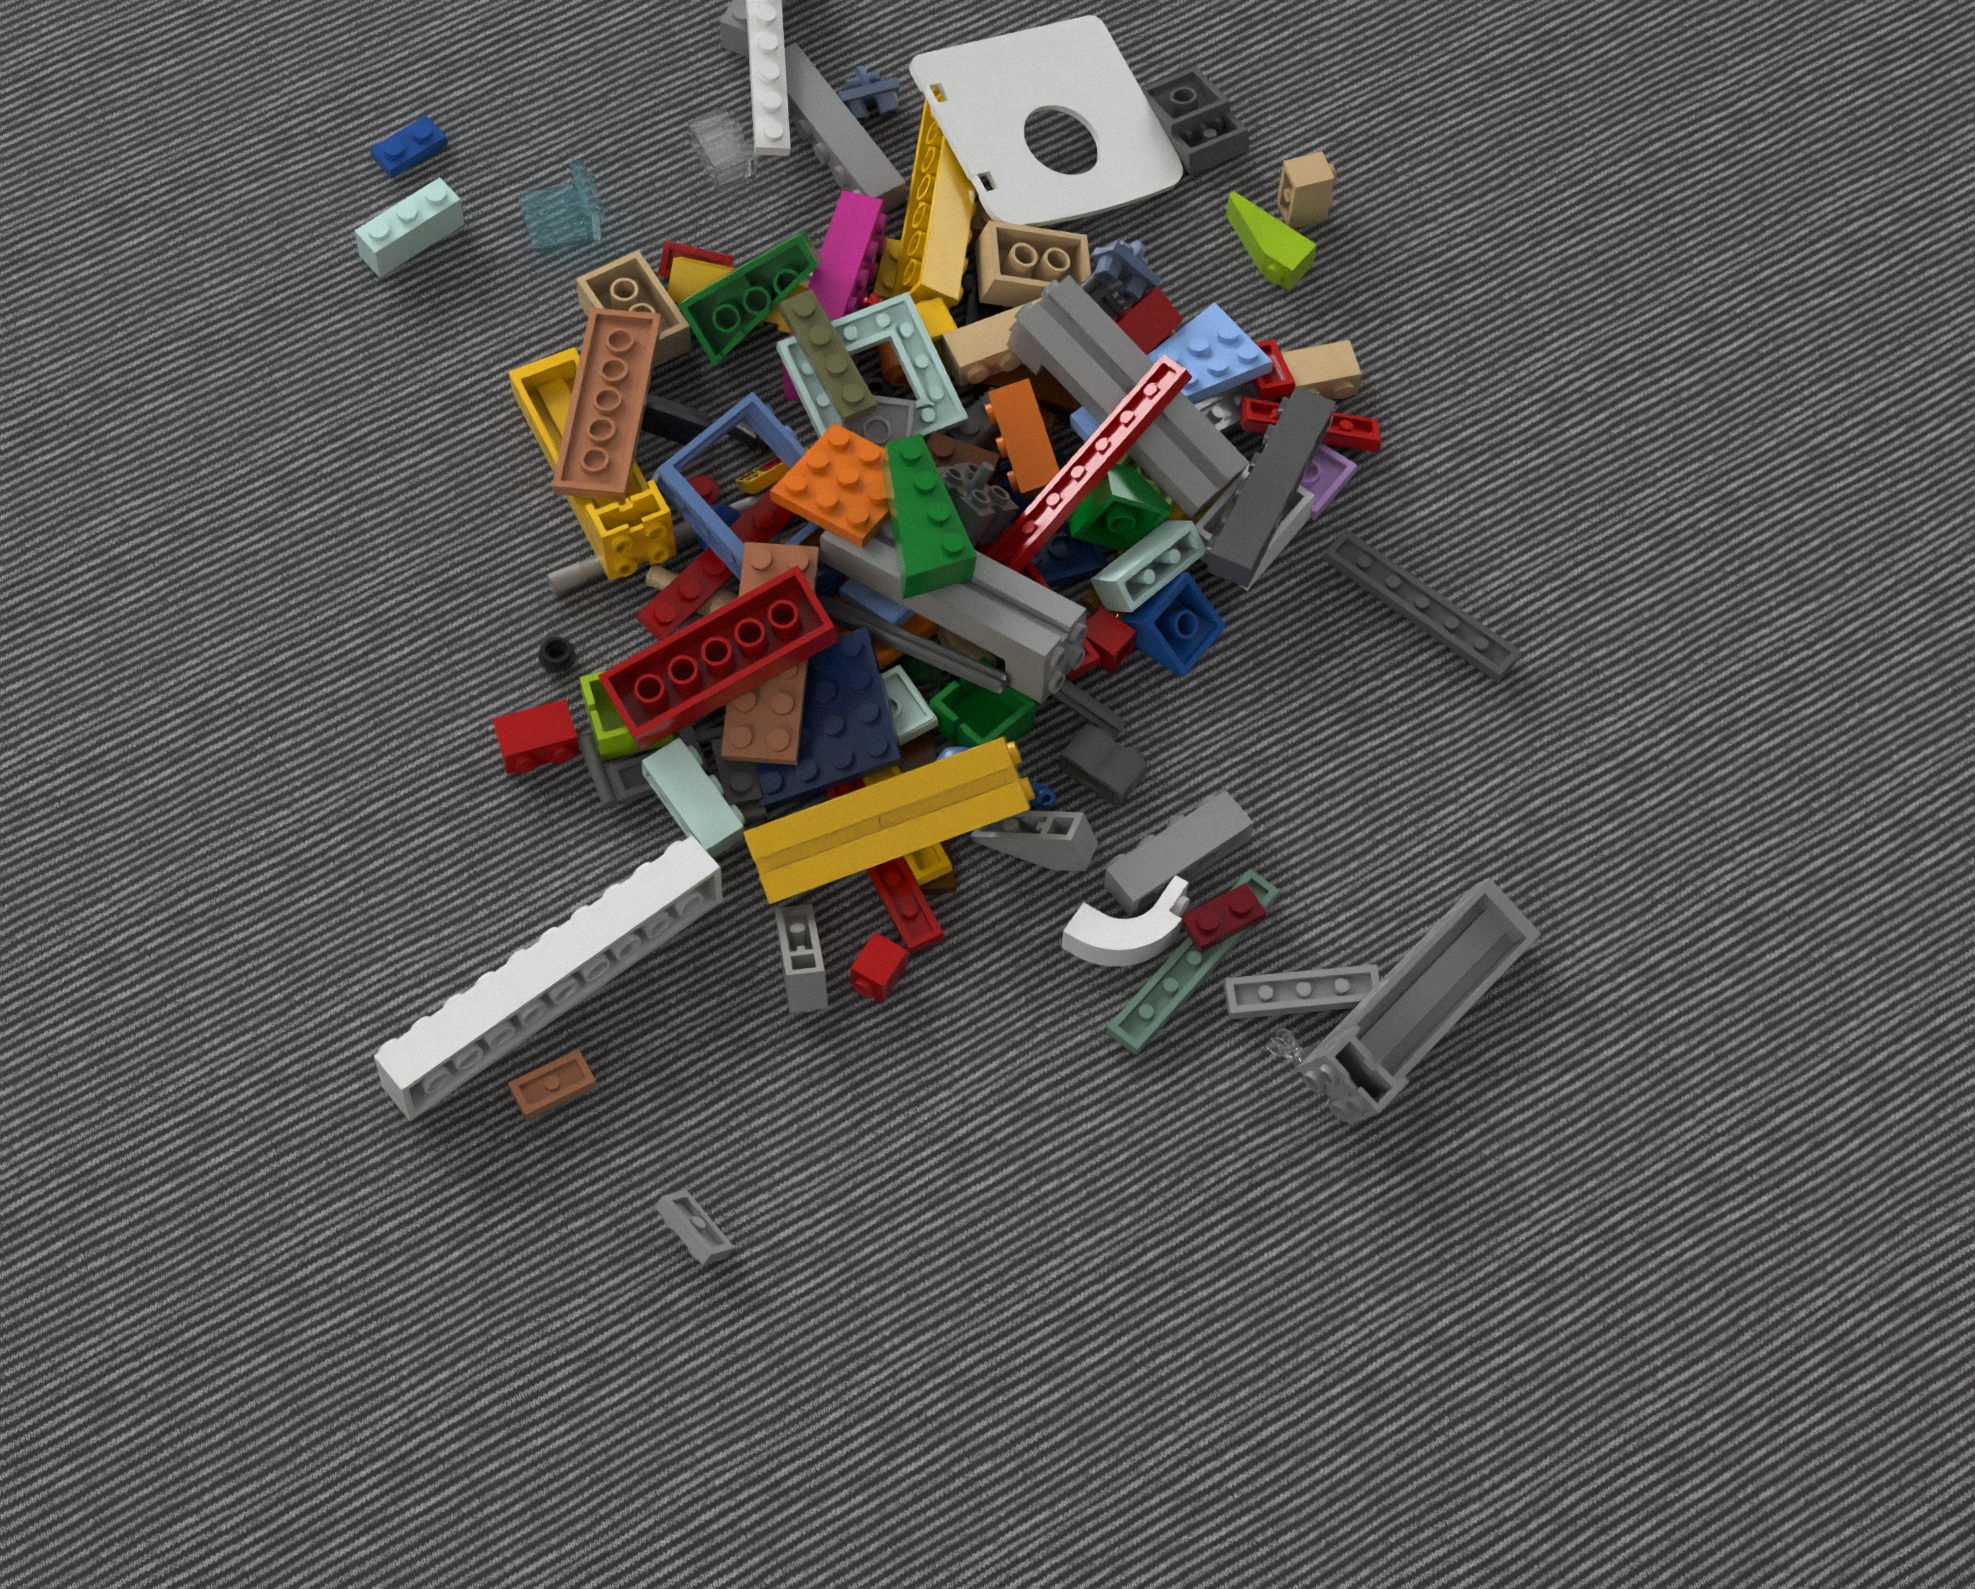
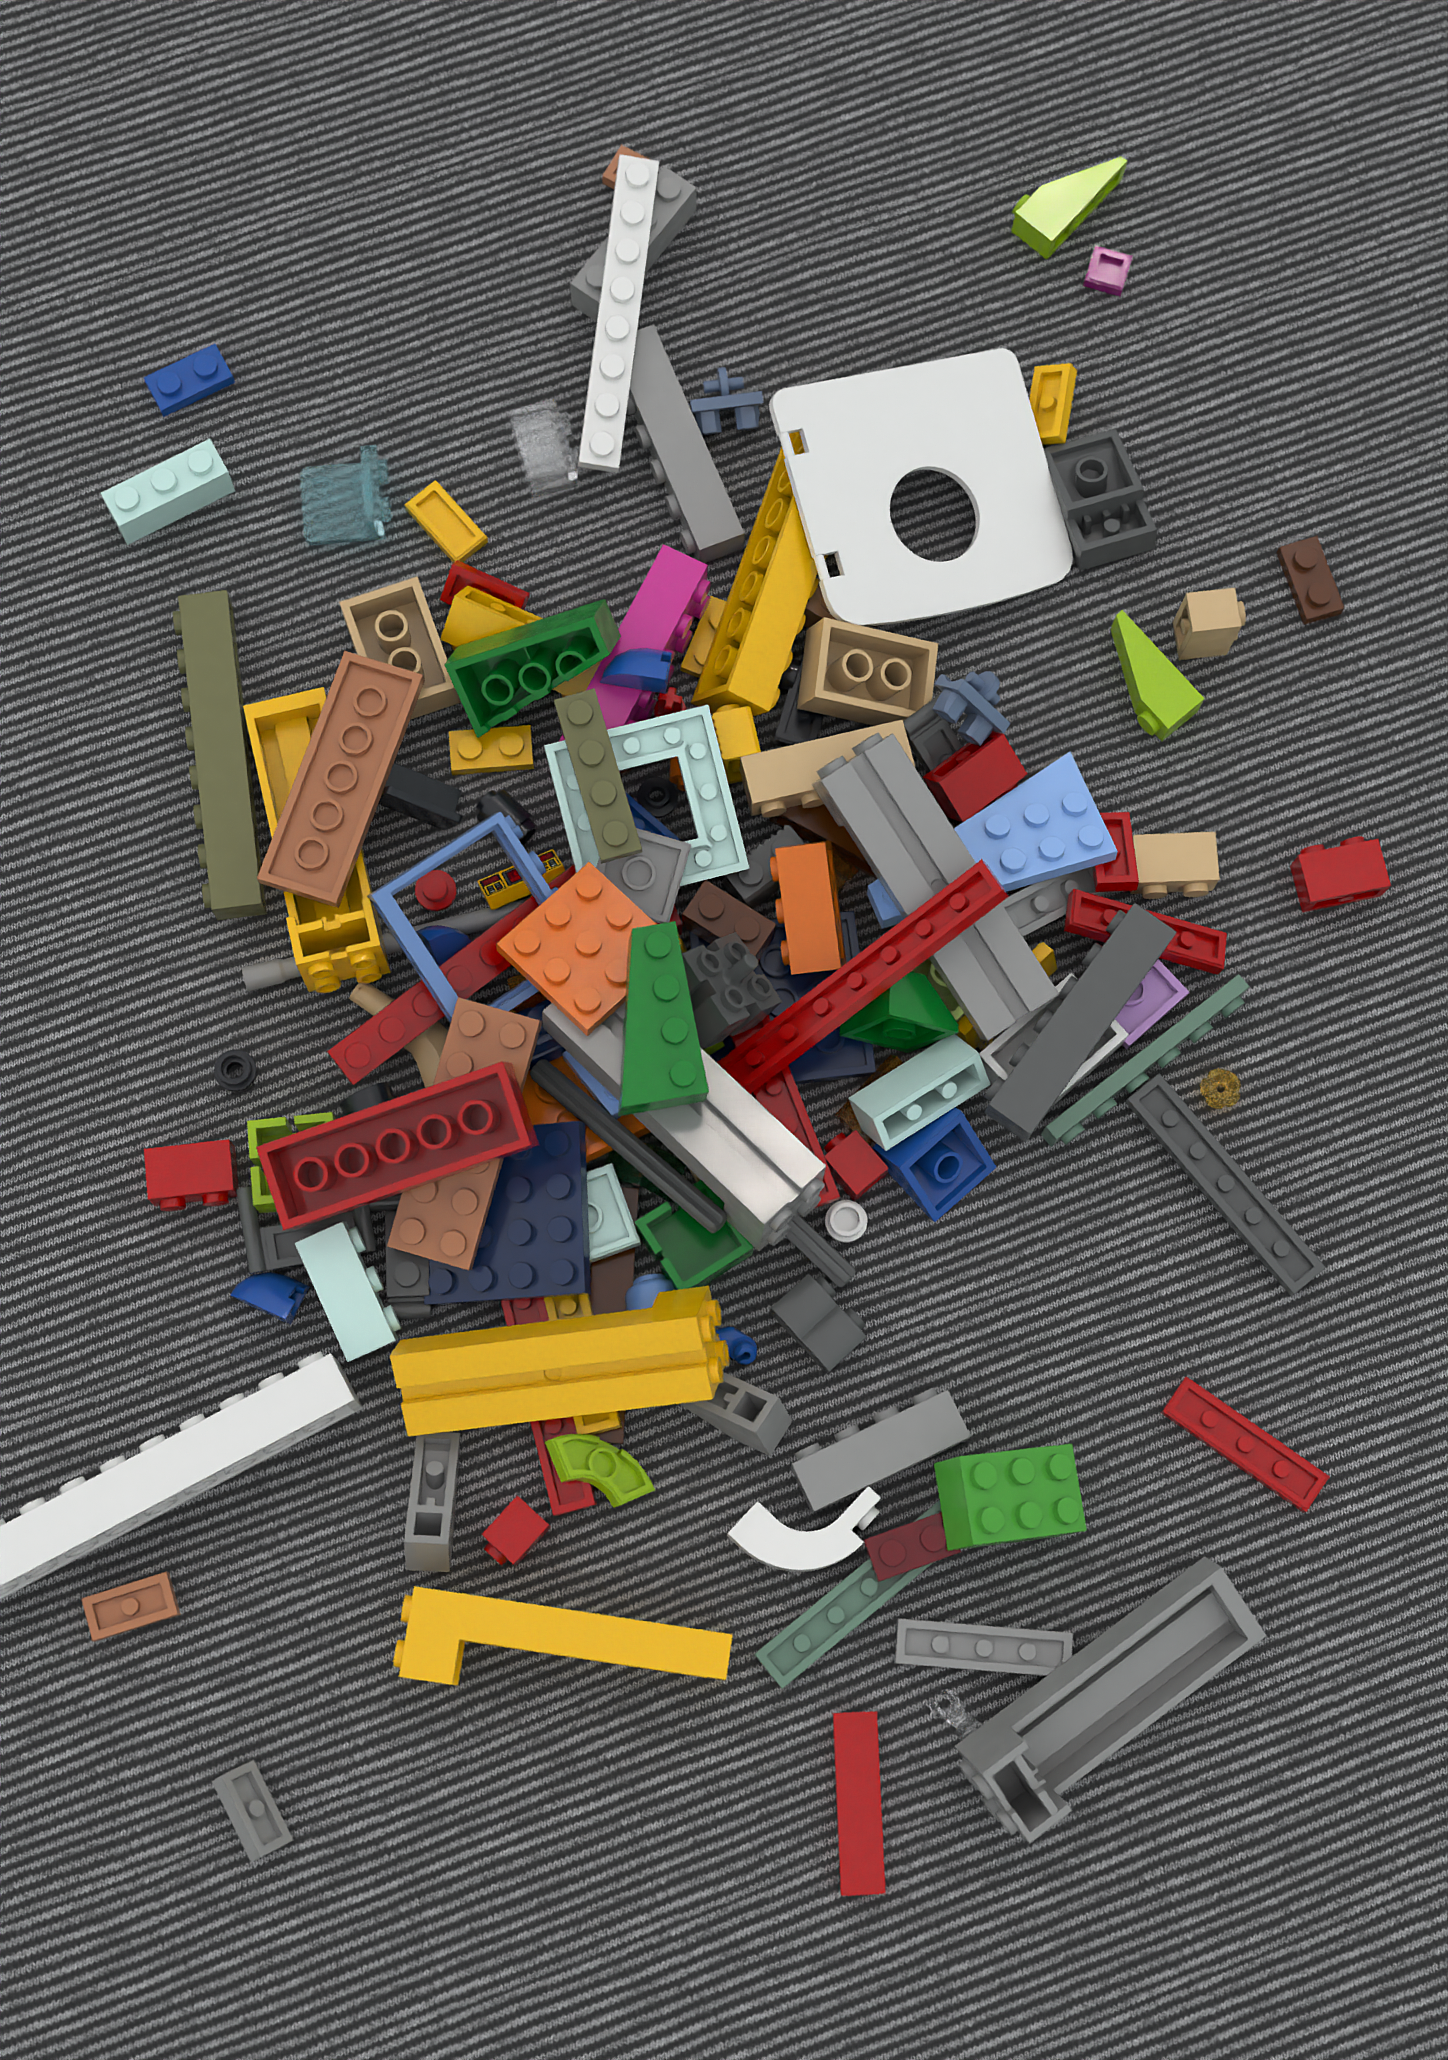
camera: 10 degrees right, 15 degrees up
(496, 418) = (221, 755): none -> olive brick
(624, 823) = (272, 1294): none -> blue brick
(649, 218) = (446, 523): none -> yellow tile
(725, 381) = (493, 752): none -> yellow plate
(844, 281) = (639, 669): none -> blue brick
(927, 897) = (600, 1464): none -> lime tile
(932, 1032) = (446, 1620): none -> yellow brick
(1108, 685) = (846, 1221): none -> white plate
(1138, 51) = (1052, 400): none -> yellow plate
(1224, 1134) = (858, 1803): none -> red tile
(1298, 860) = (1009, 1496): none -> bright green brick
(1326, 530) = (1133, 1073): none -> sand green plate
(1382, 154) = (1310, 580): none -> reddish brown plate
(1404, 528) = (1223, 1078): none -> clear yellow plate
(1460, 360) = (1339, 874): none -> red brick
(1487, 801) = (1245, 1444): none -> red tile

